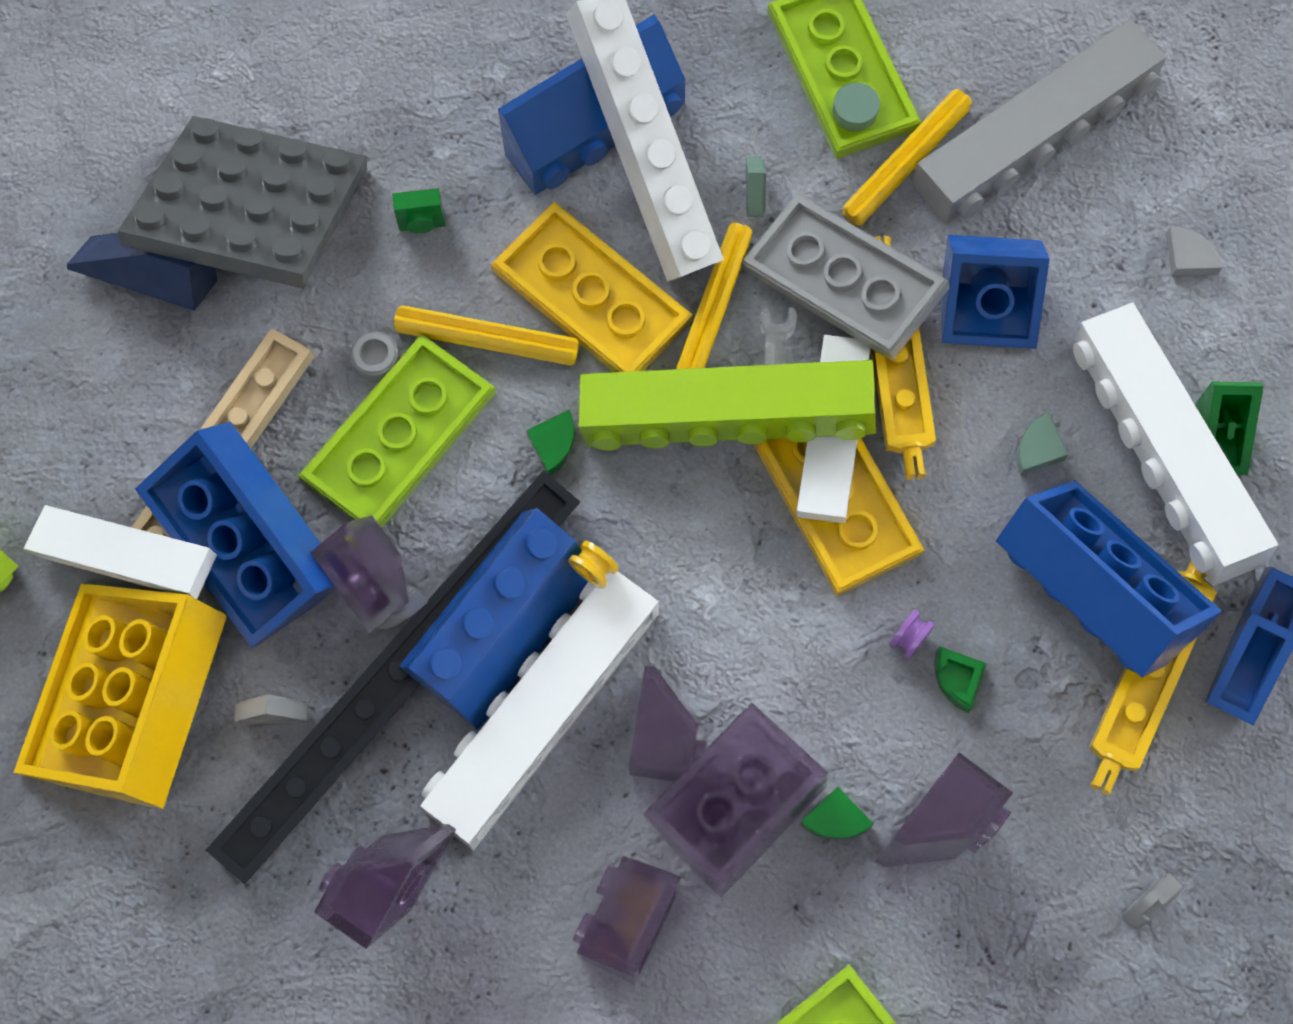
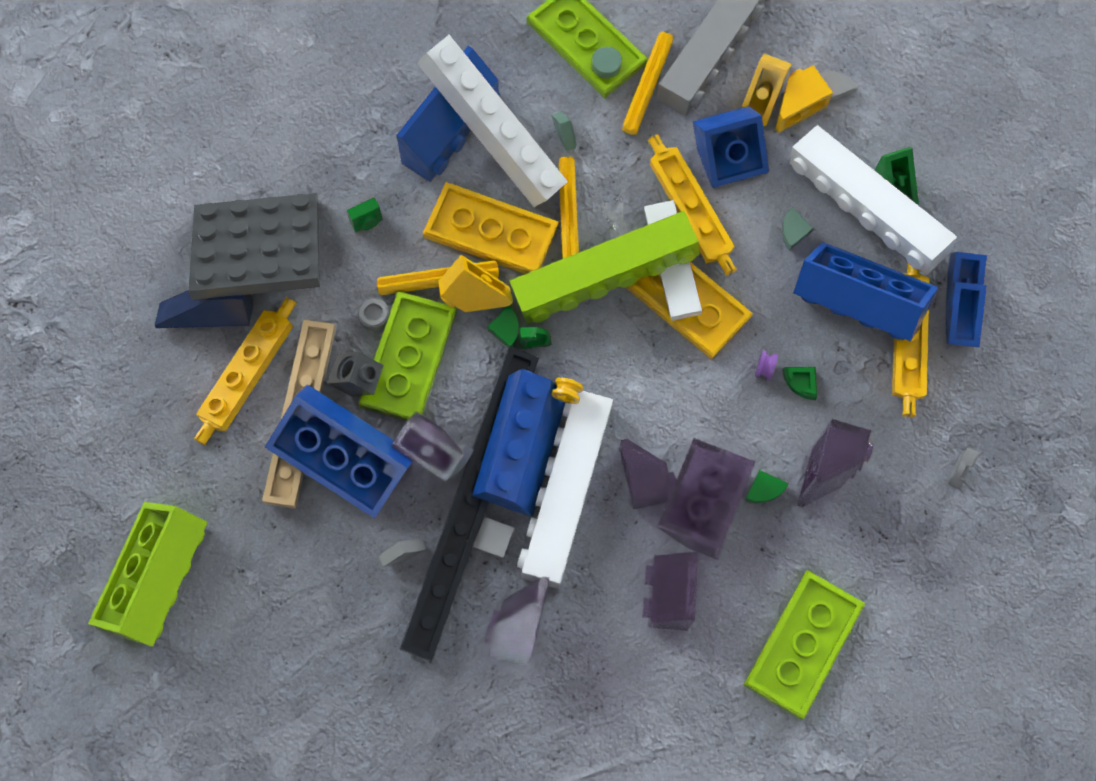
camera: 25 degrees left, 0 degrees up
(120, 551) = (269, 489): white tile -> none
(122, 693) = (305, 575): yellow slope -> none
(163, 371) = (244, 371): none -> yellow plate
(308, 431) = (355, 374): none -> dark grey brick
(408, 740) = (493, 538): none -> light grey tile
(526, 367) = (472, 287): none -> yellow slope
(587, 470) = (534, 337): none -> green tile
(845, 276) = (642, 166): light grey tile -> none
(1081, 220) = (766, 86): none -> yellow slope
(1130, 255) = (803, 96): none -> yellow slope

